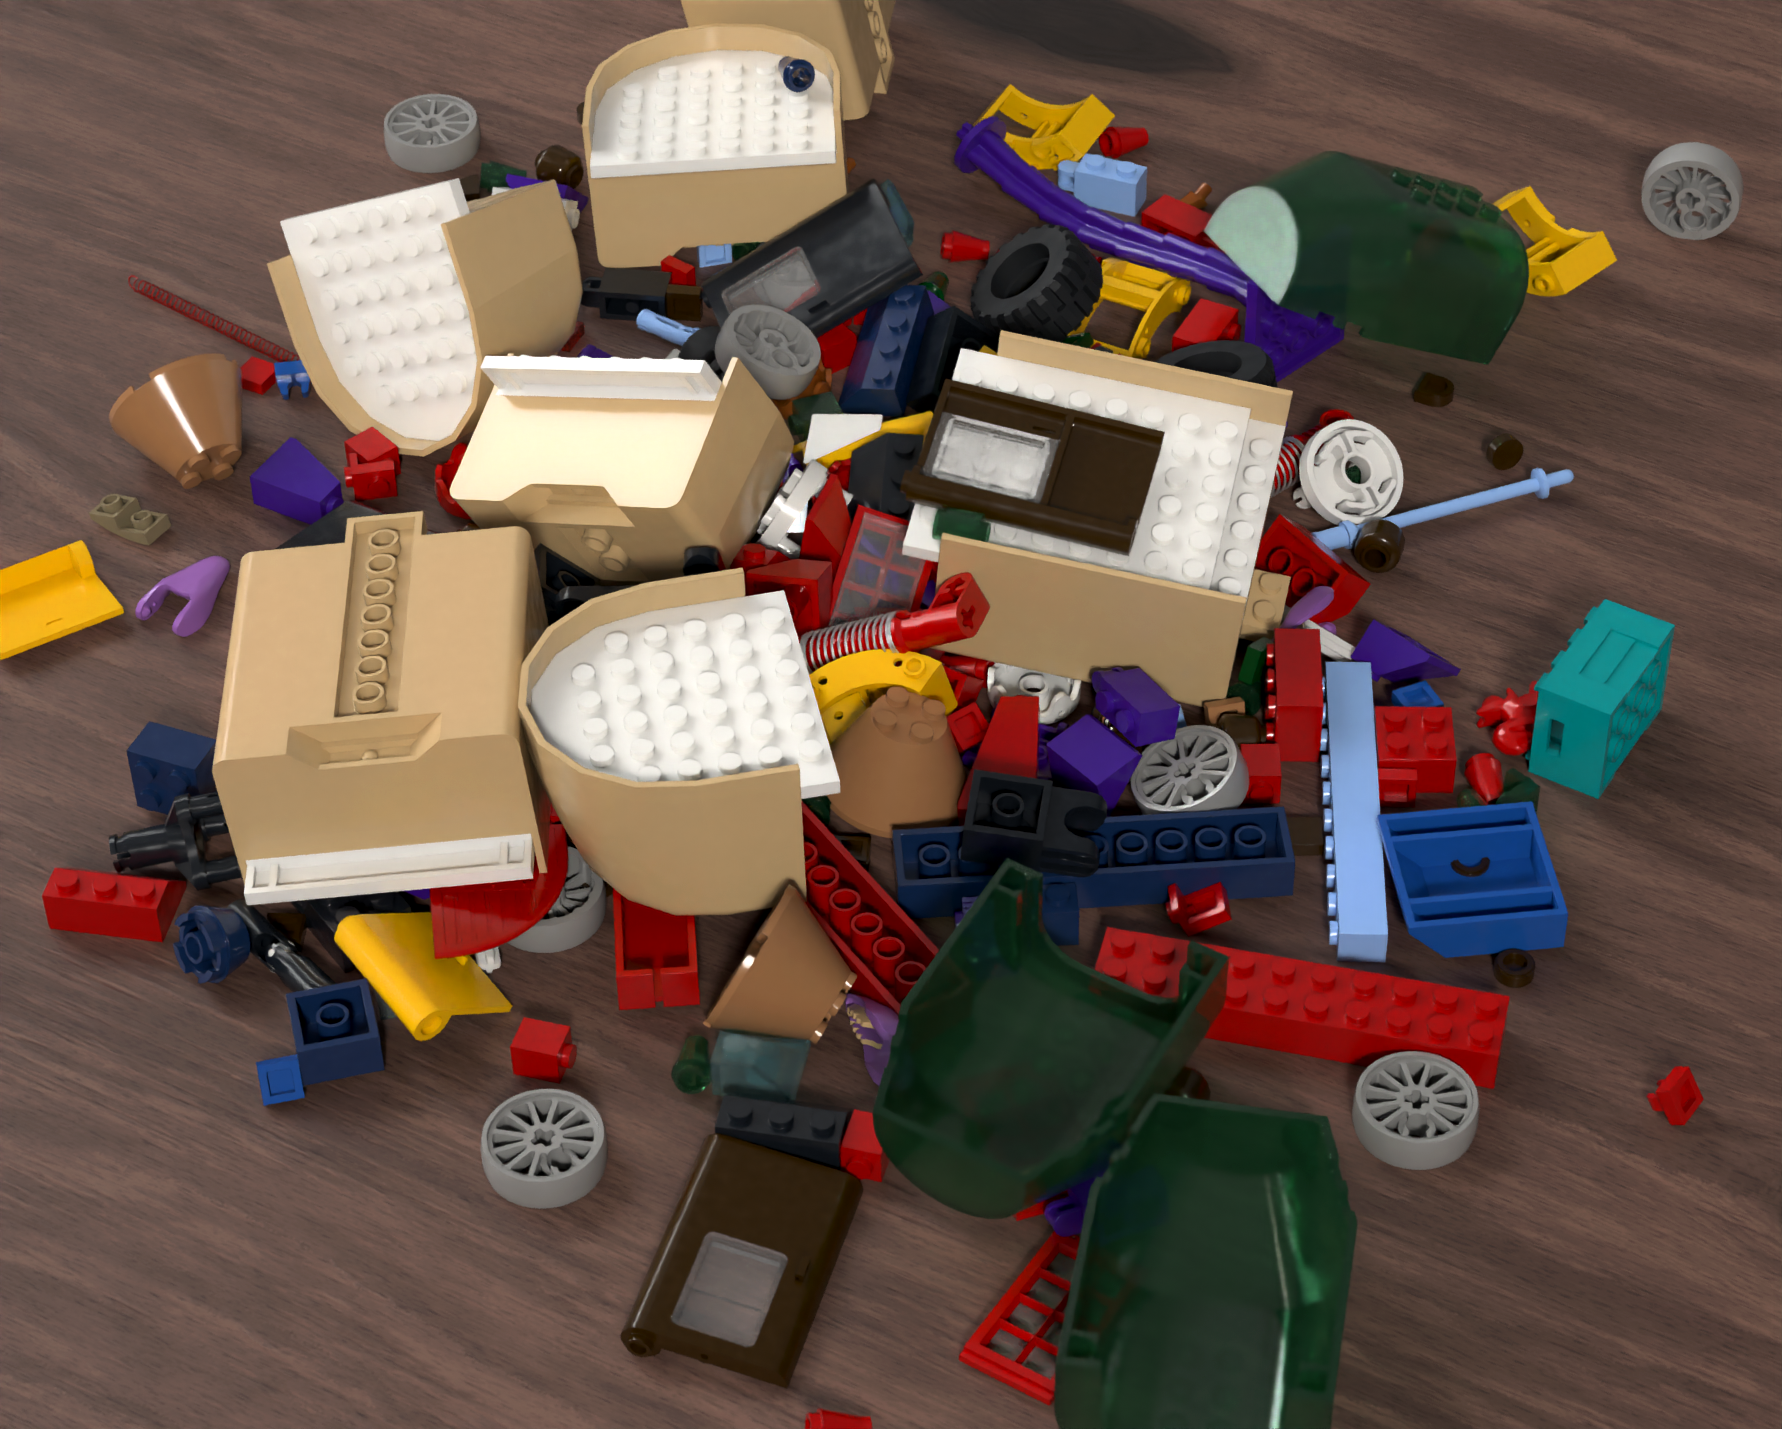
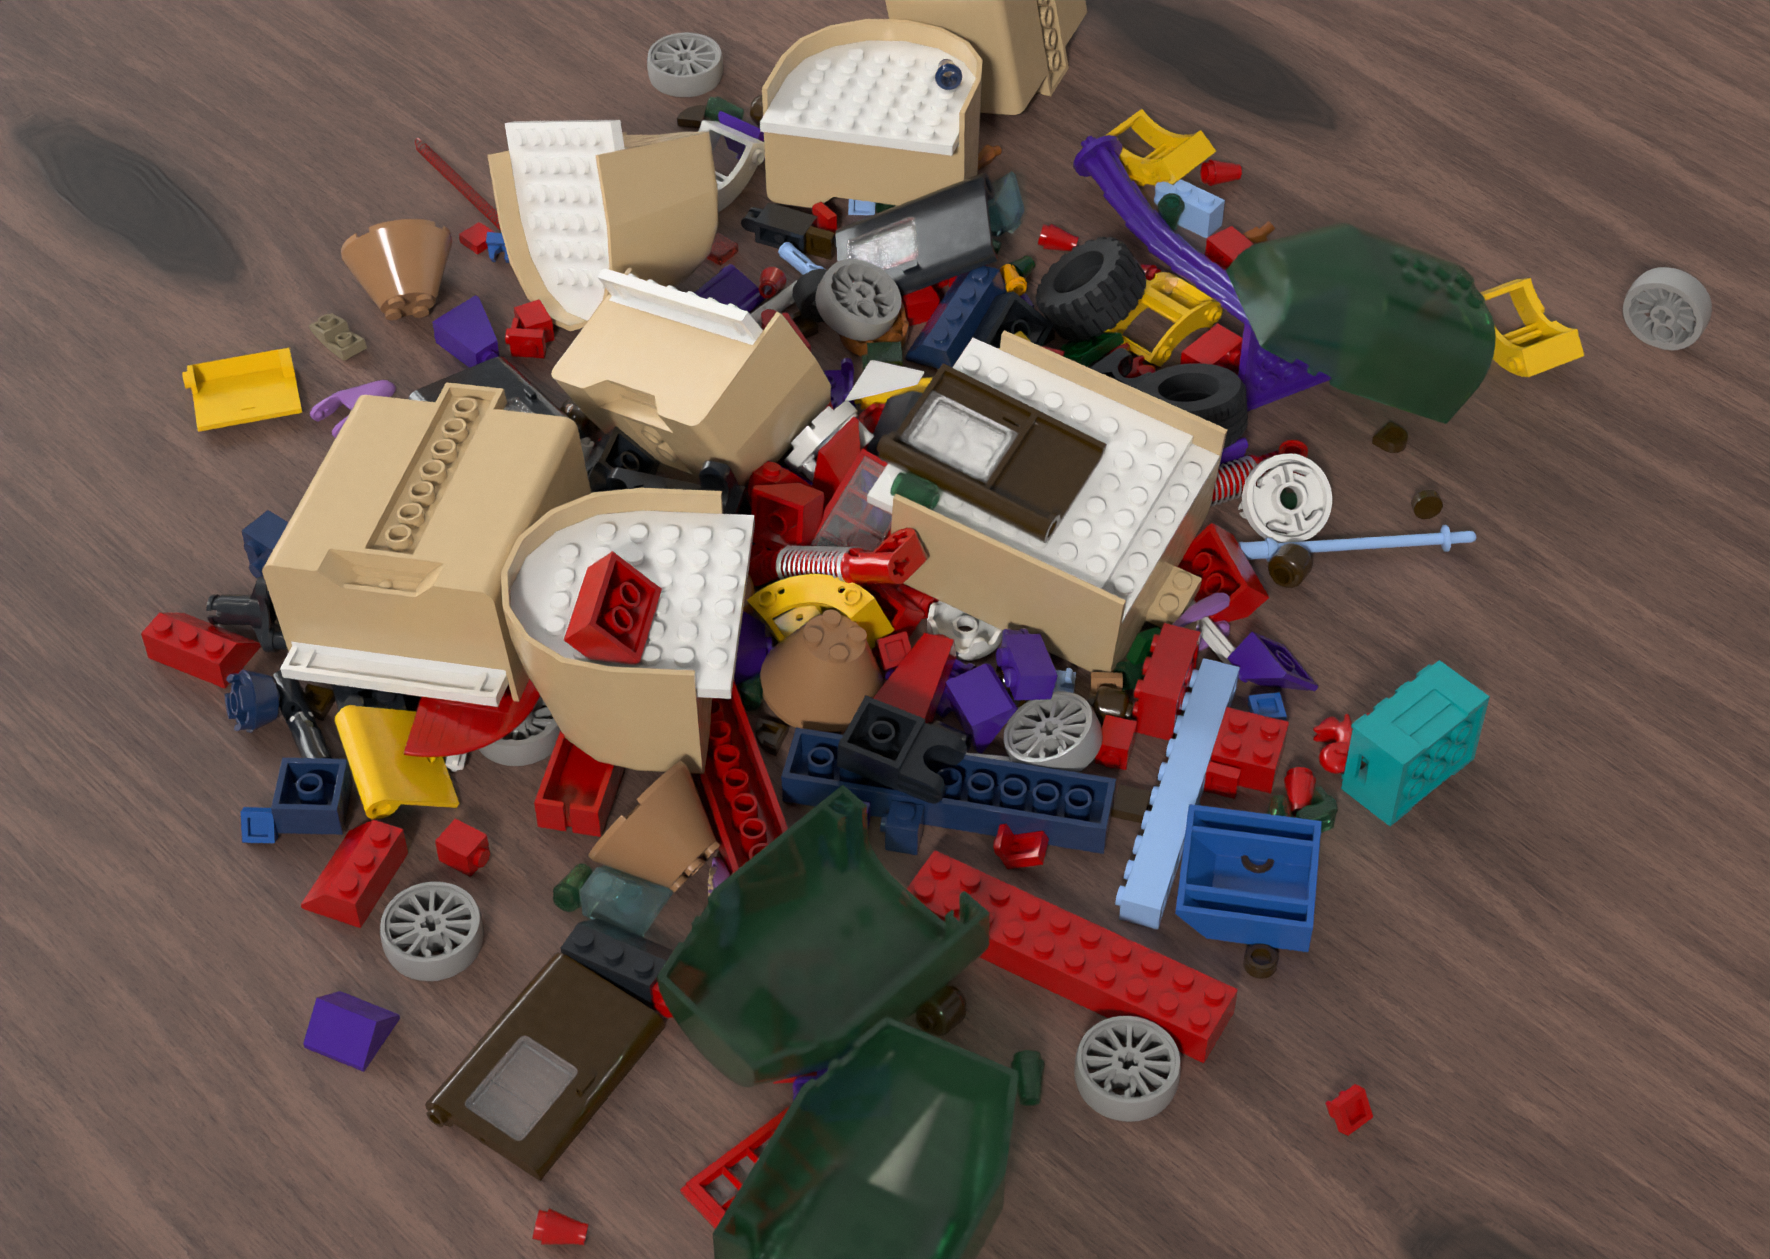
camera: 15 degrees right, 5 degrees up
(423, 1105) = (358, 873): none -> red slope
(488, 1280) = (348, 1029): none -> dark purple slope
(643, 348) = (771, 282): none -> red cone
(671, 722) = (613, 612): none -> red slope
(940, 298) = (1013, 280): none -> light orange pin
(1088, 187) = (1171, 209): none -> clear green cone

